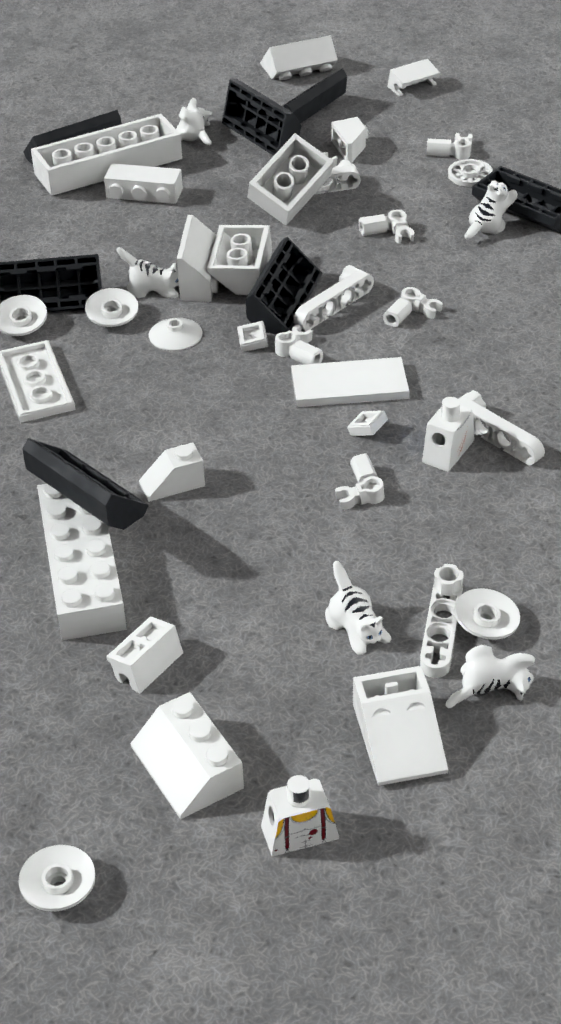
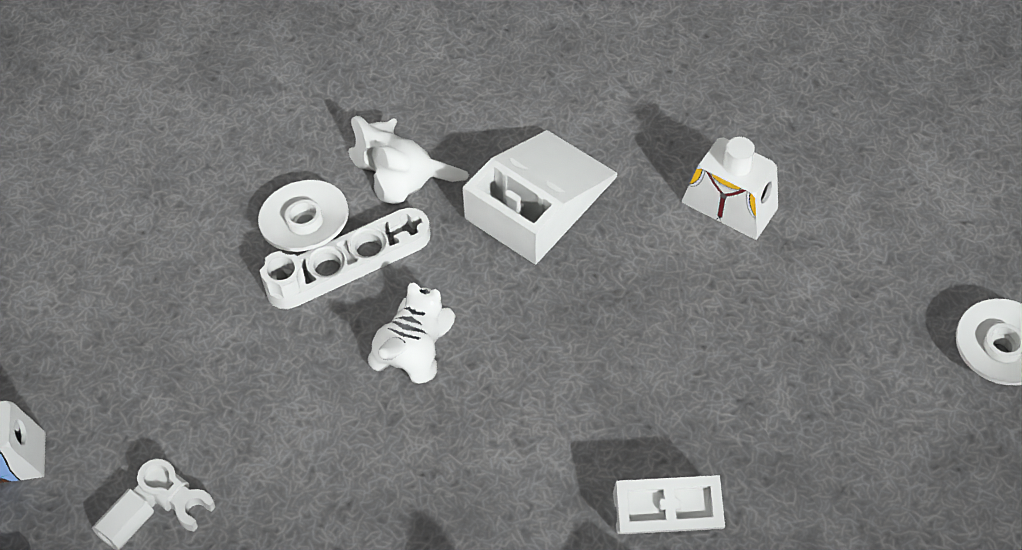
camera: 130 degrees left, 15 degrees up
(188, 756) = (757, 348): white slope -> none

